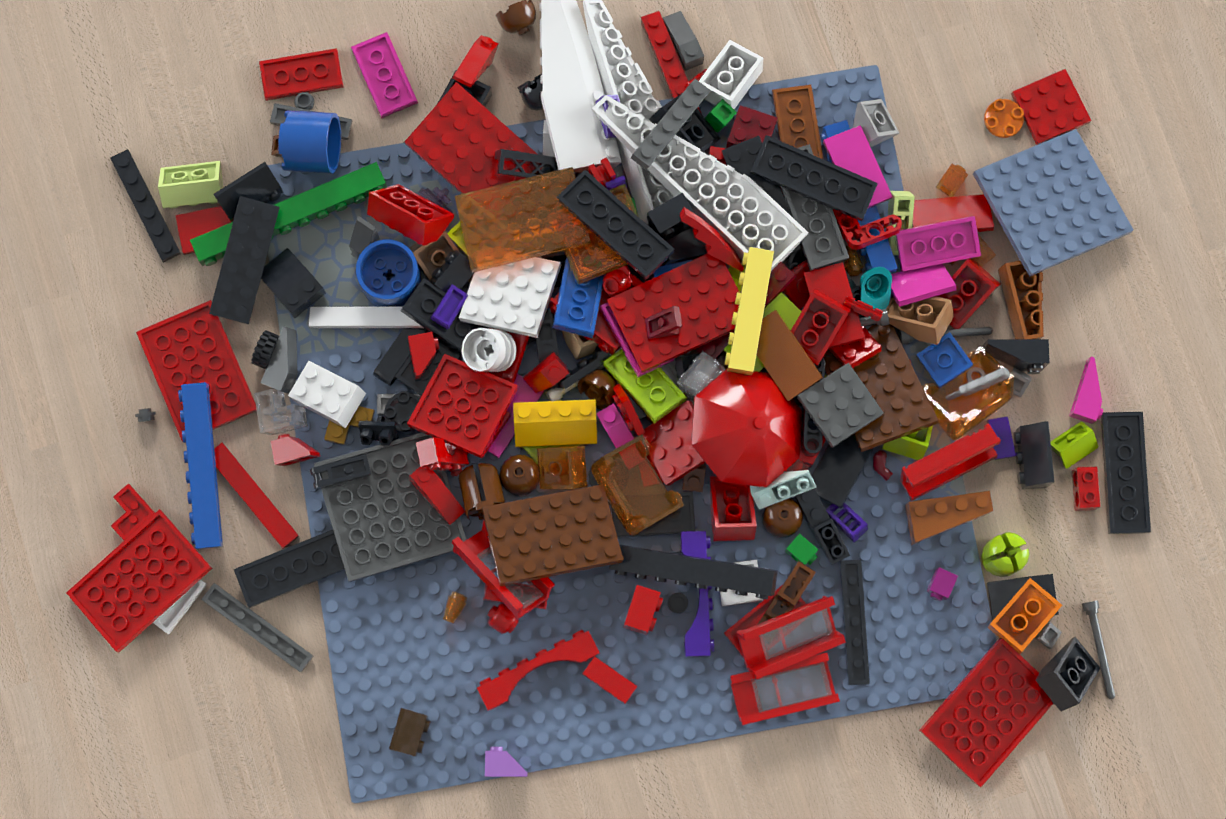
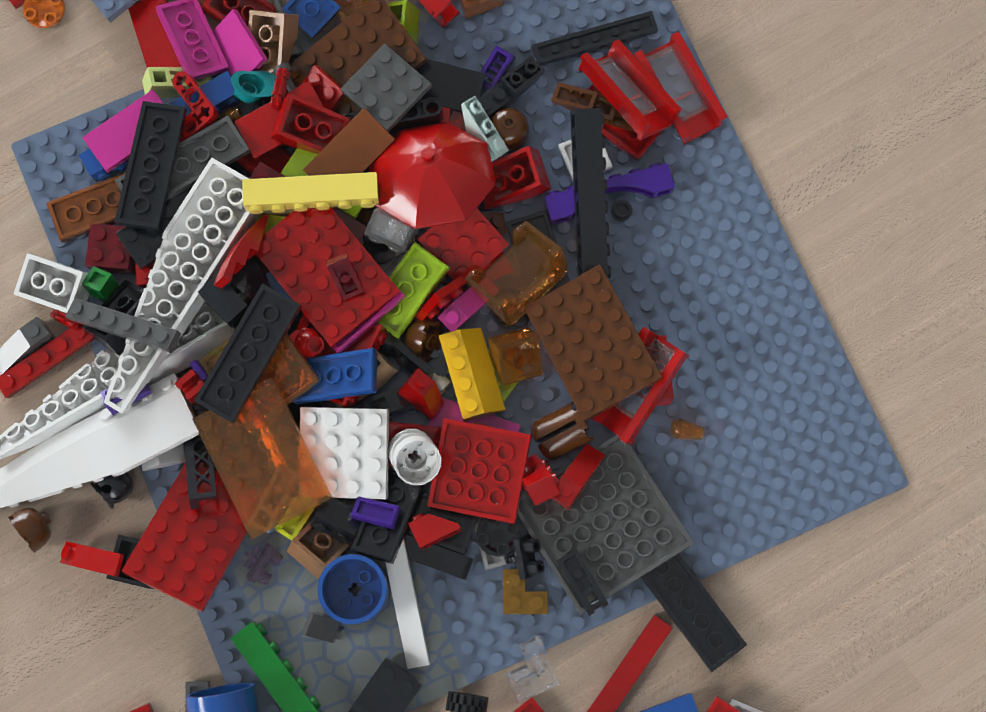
camera: 100 degrees left, 0 degrees up
(257, 627) = (762, 631): dark grey plate -> none
(282, 367) = (481, 680): dark grey slope -> none
(291, 450) = (568, 645): slope -> none
(327, 394) = (501, 622): white brick -> none
(384, 75) = (126, 660): dark pink tile -> none
(409, 213) = (281, 585): red slope -> none
(409, 732) = (827, 441): dark brown slope -> none
(502, 619) = (687, 378): red head -> none
(502, 764) = (831, 341): medium lavender slope -> none
(519, 483) = (524, 402): reddish brown cylinder -> none
(577, 650) = (757, 363): red arch -> none
(609, 680) = (717, 256): red piece -> none
(641, 610) = (641, 238): red brick -> none
(802, 550) = (538, 102): green brick -> none
(875, 121) = (72, 128): light grey slope -> none
(879, 464) = (434, 48): dark red arm -> none
(952, 180) = (120, 43): clear orange brick -> none

